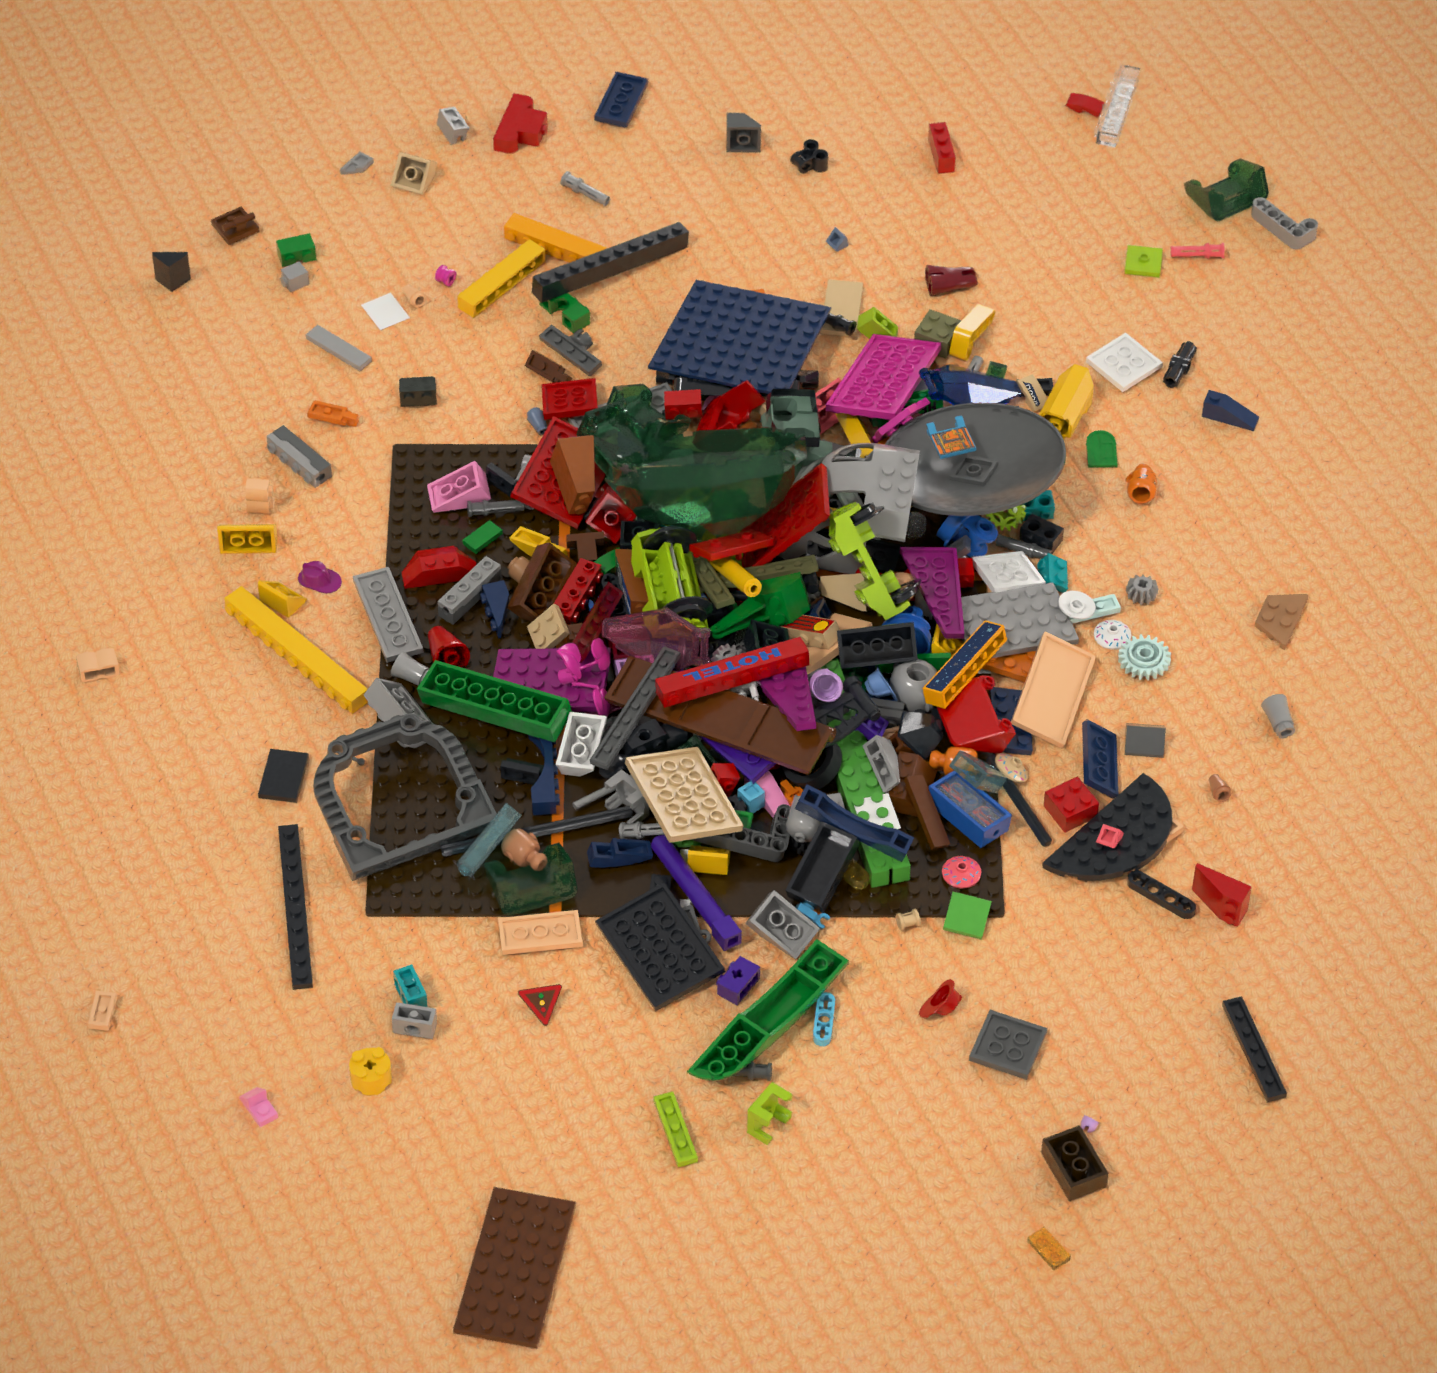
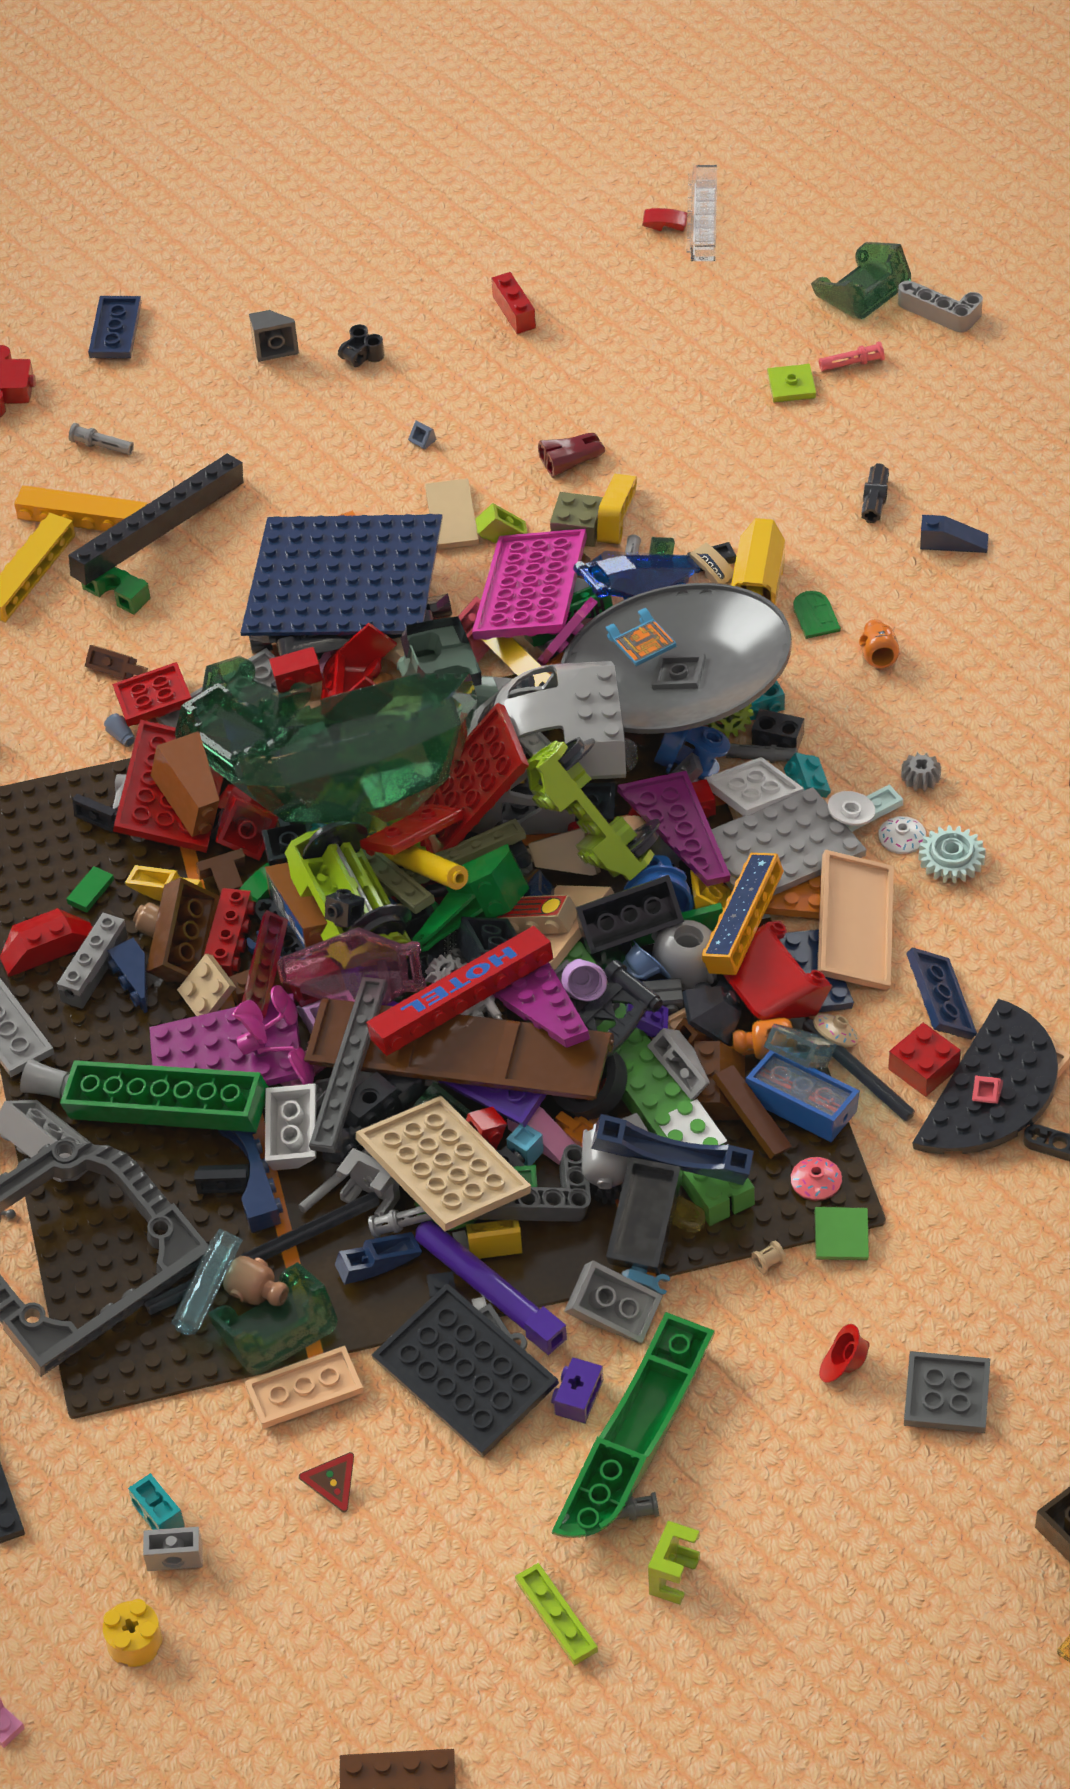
camera: 10 degrees left, 0 degrees up
(447, 647) = (84, 1041): red cone -> none
(458, 487) = (46, 836): bright pink slope -> none
(486, 507) = (85, 851): dark grey pin -> none
(572, 348) = (138, 632): dark grey plate -> none
(662, 591) = (344, 908): none -> black brick
(827, 1026) = (697, 1424): medium azure beam -> none
(840, 323) = (459, 532): black pin -> none
(1124, 362) = (808, 505): white plate -> none
(1145, 740) = (986, 956): dark grey slope -> none

